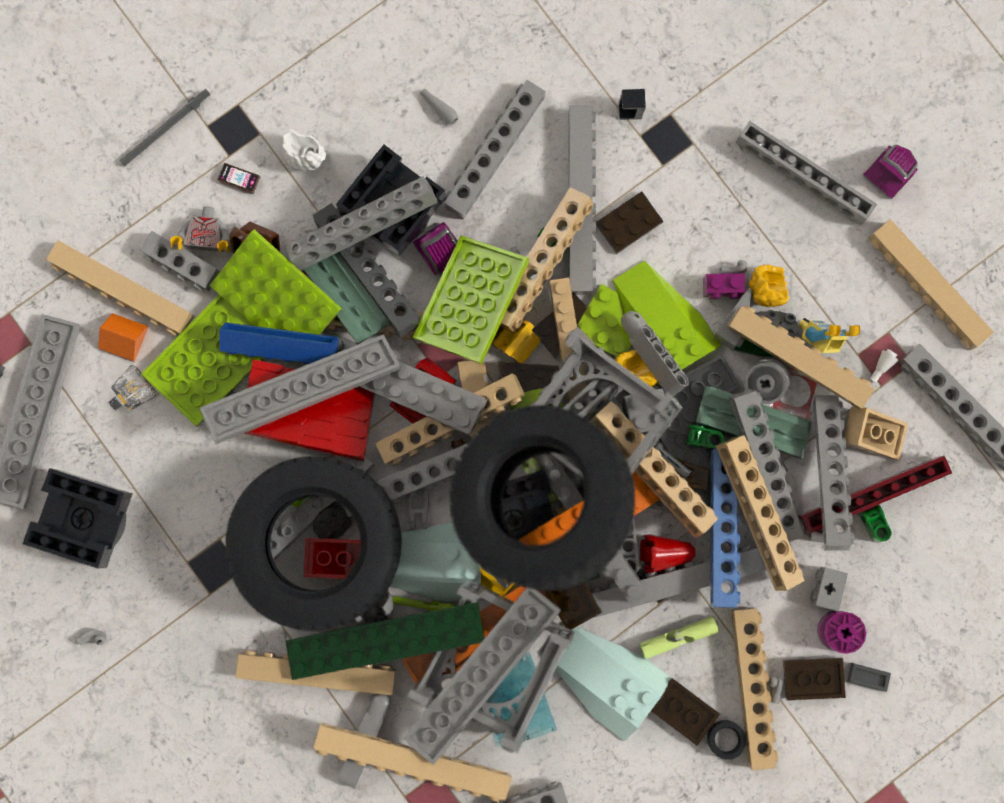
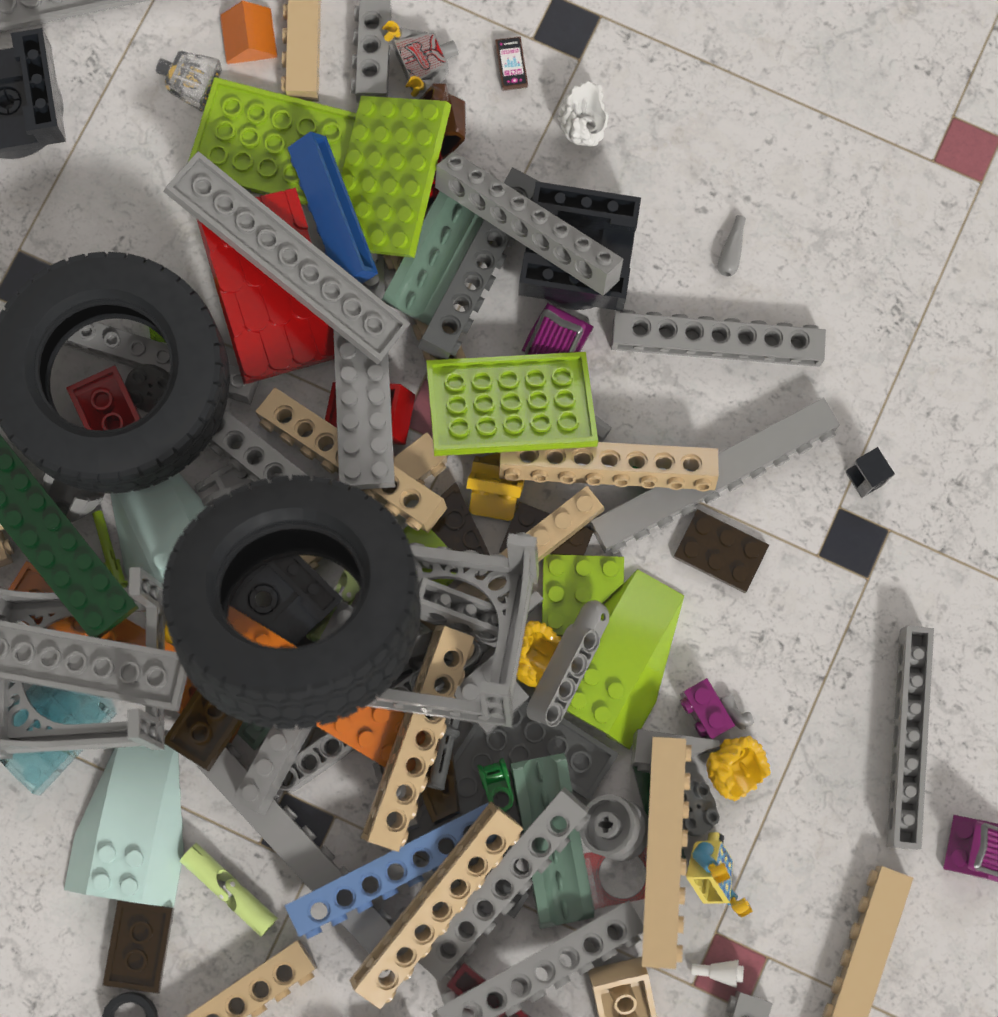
camera: 60 degrees right, 5 degrees down
(664, 553) = (326, 815): red cone -> none

